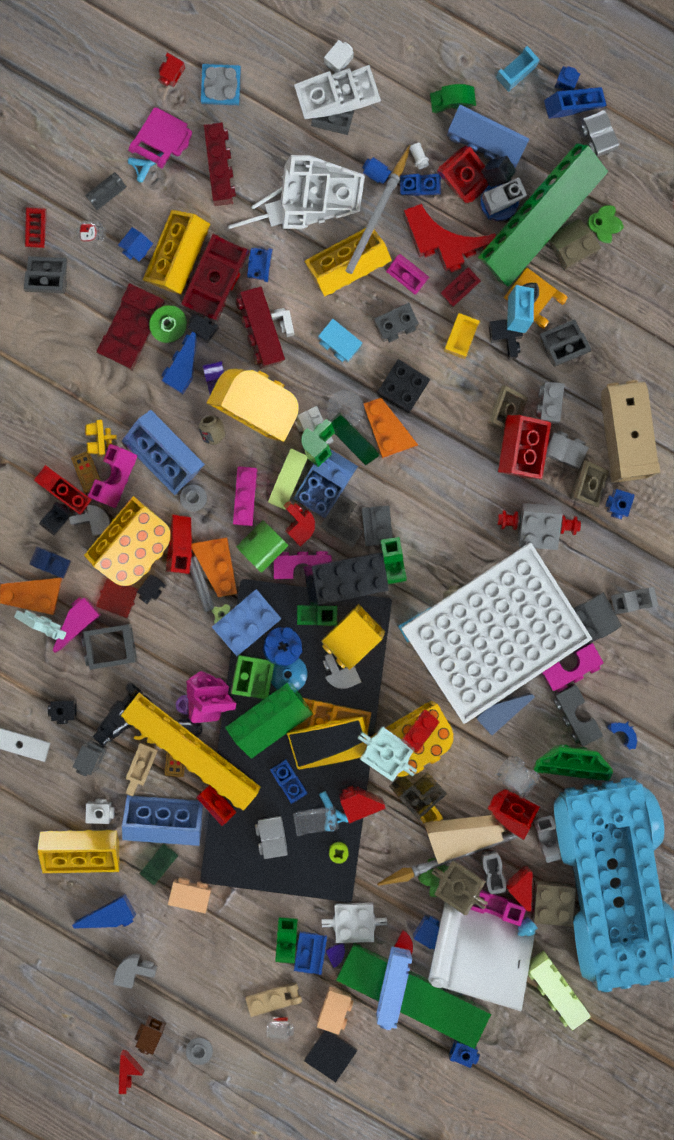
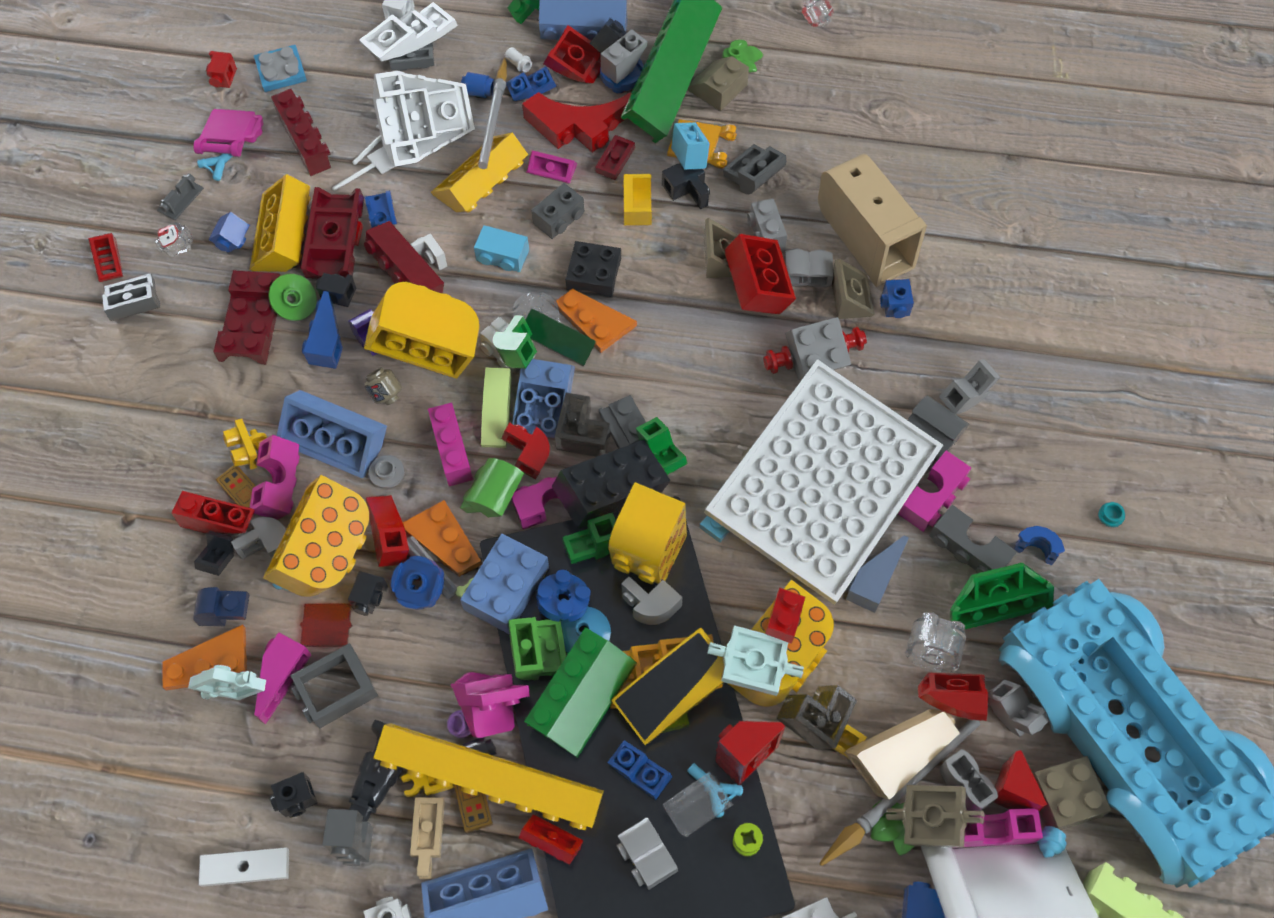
camera: 25 degrees left, 25 degrees down
(198, 593) = (431, 587): none -> blue plate

